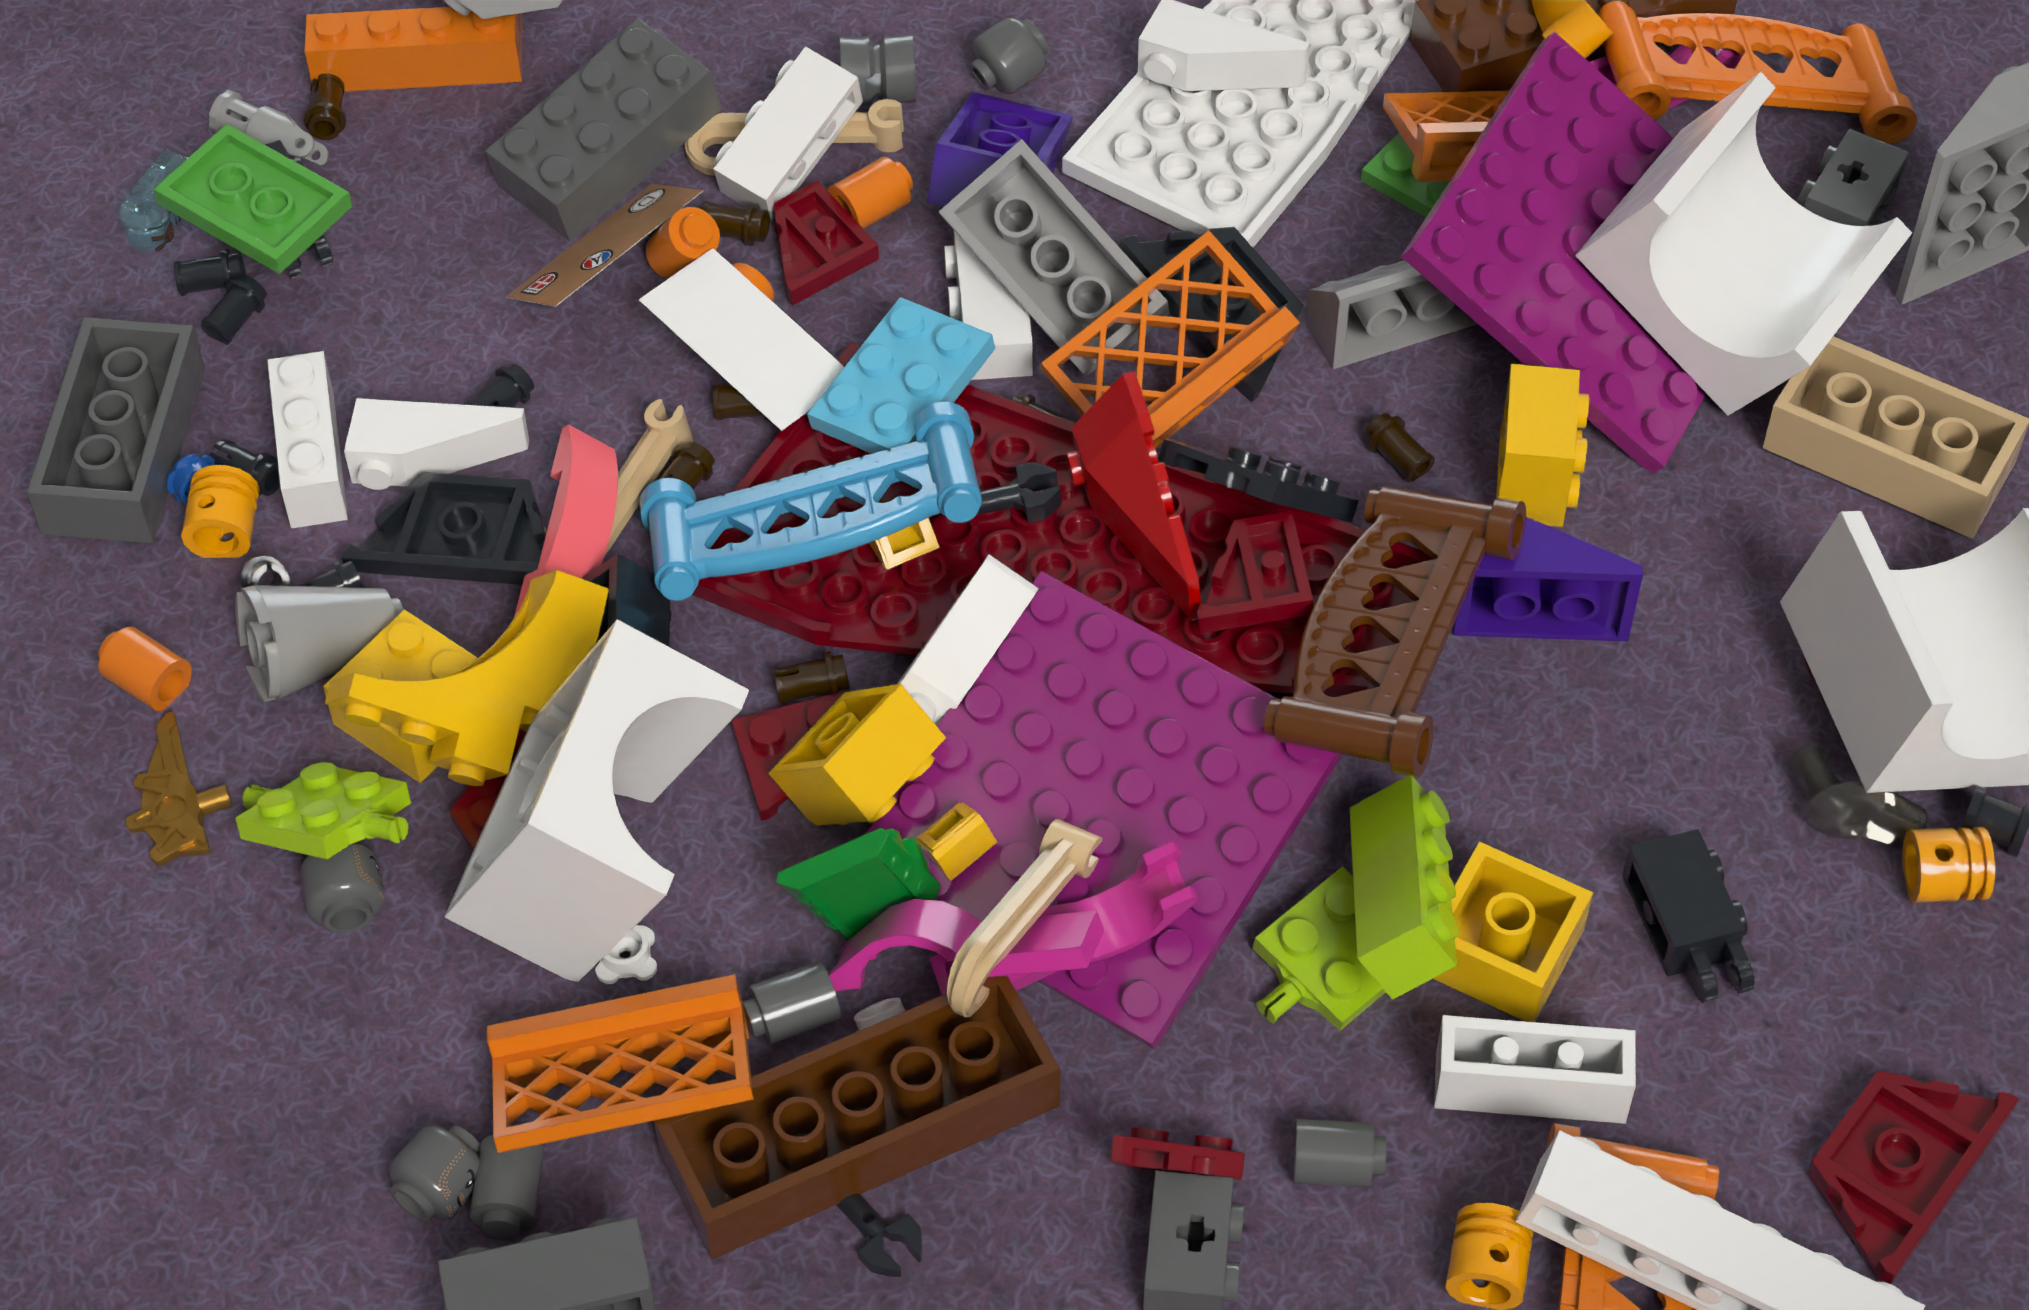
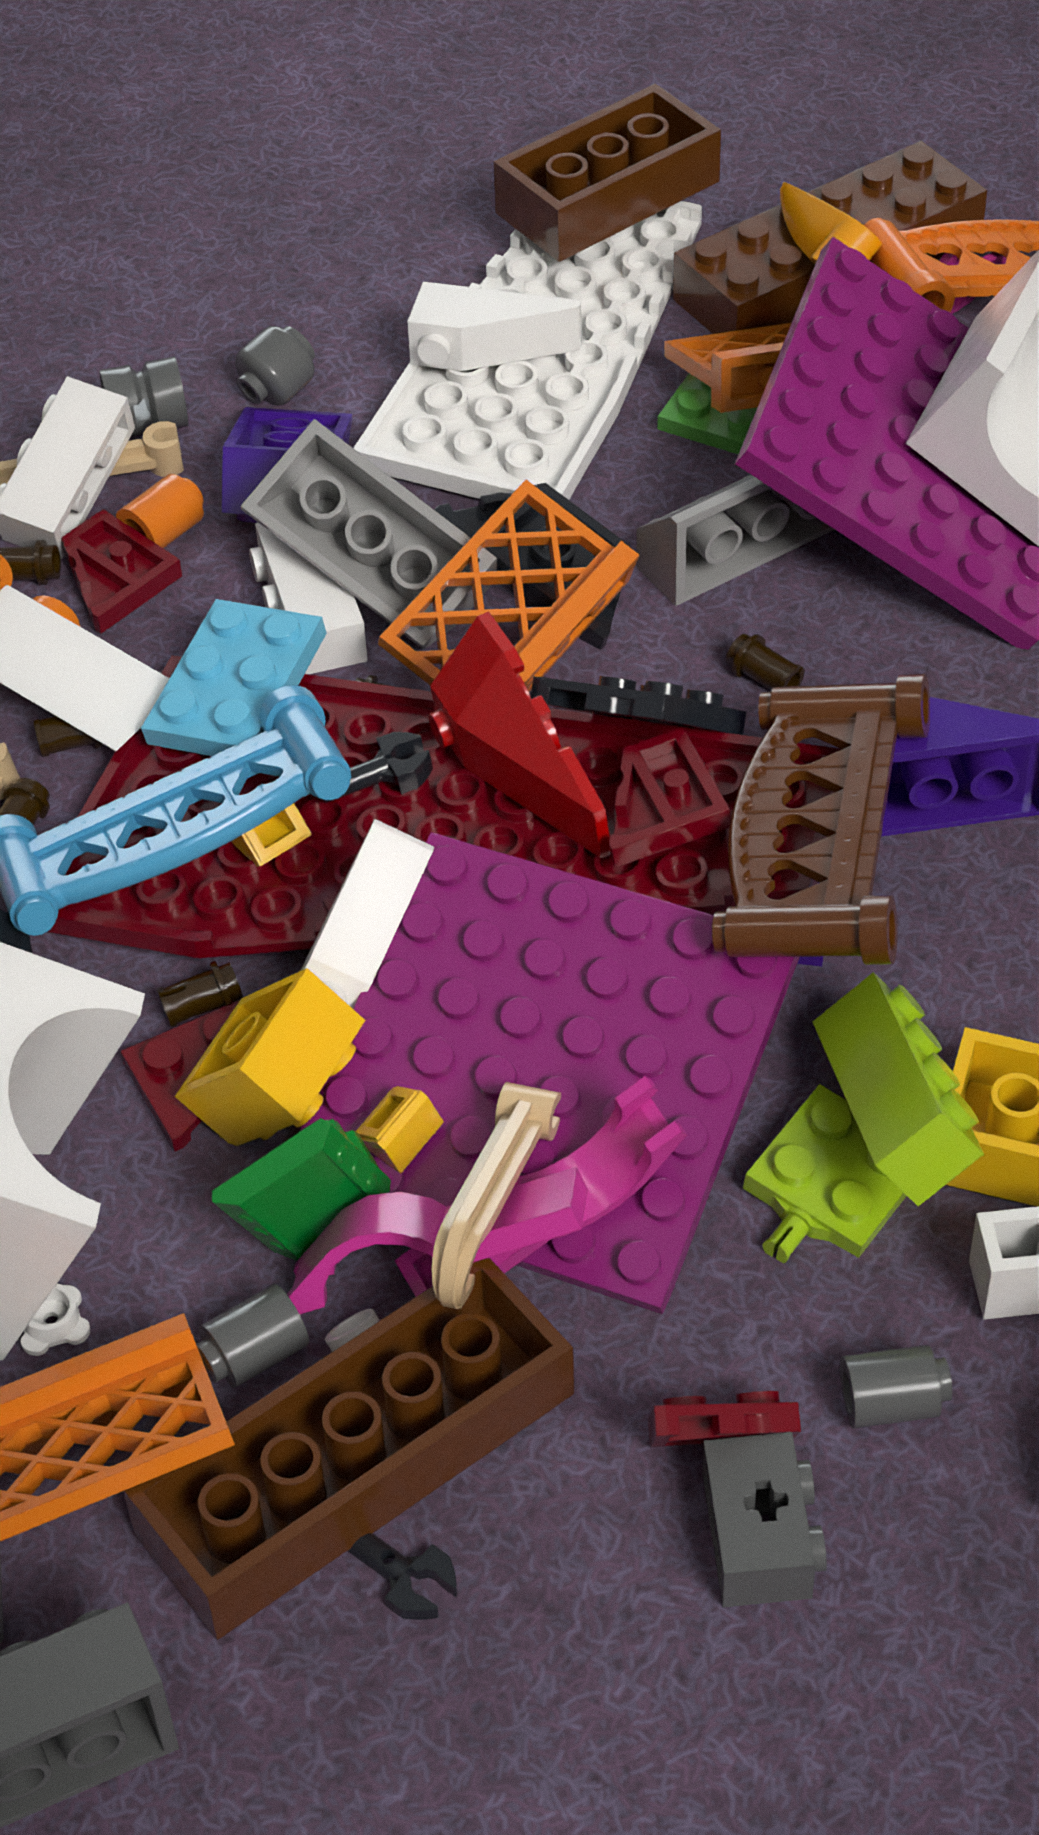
camera: 10 degrees left, 5 degrees down
(1542, 441) = (913, 621): yellow brick -> none

